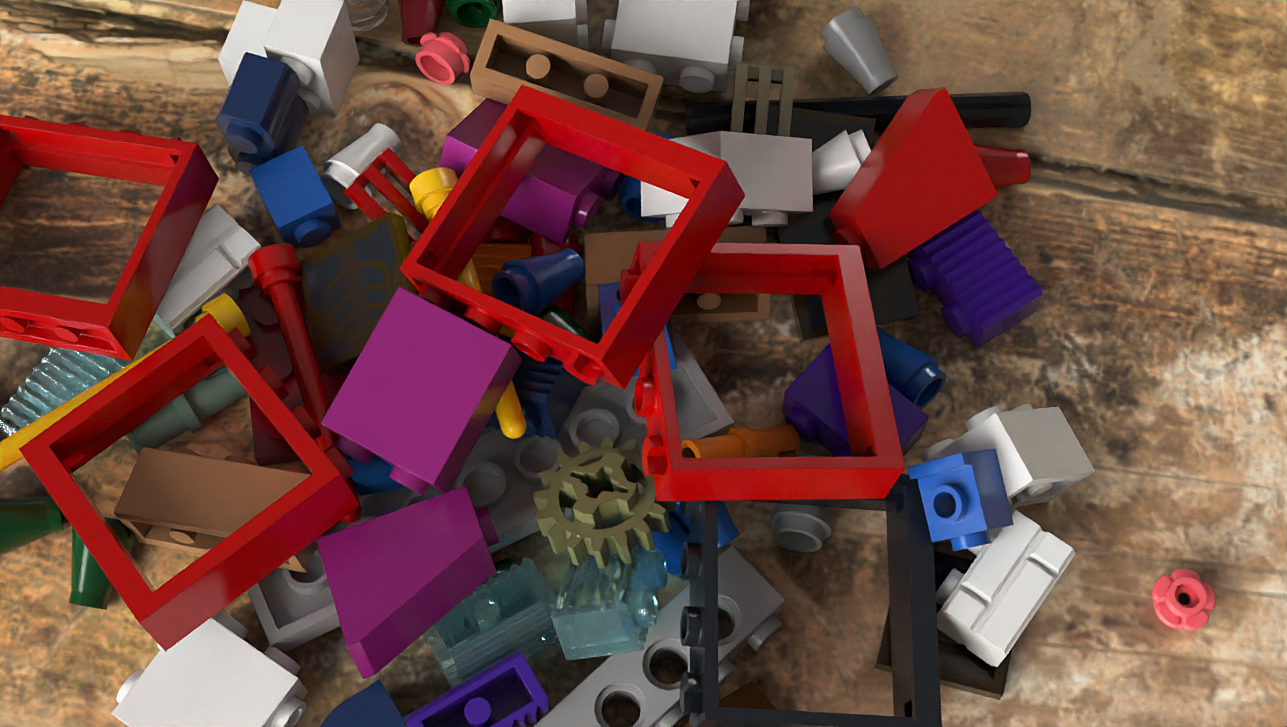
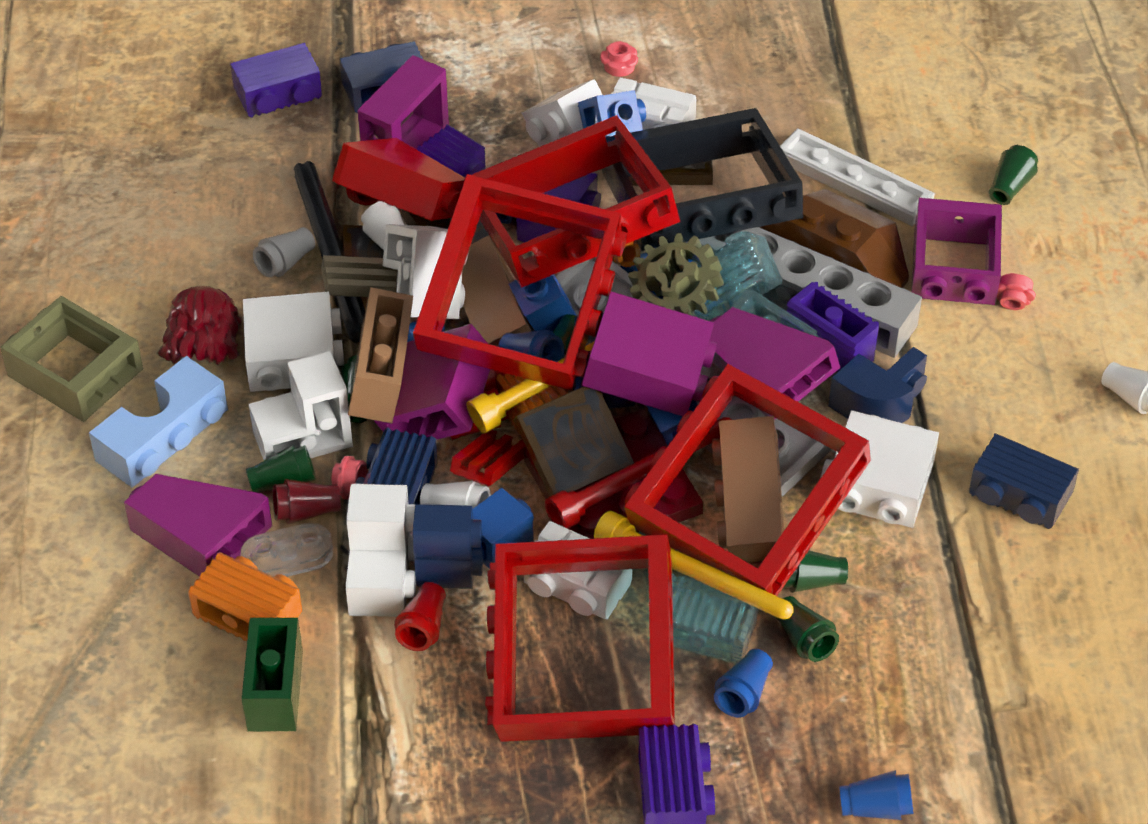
camera: 105 degrees left, 20 degrees down
(191, 86) = (420, 620): none -> red cone
(410, 99) = (402, 461): none -> dark blue brick
(1066, 231) = (413, 87): none -> magenta window
(1194, 241) = (366, 72): none -> dark blue brick
(1211, 97) = (276, 79): none -> dark purple brick

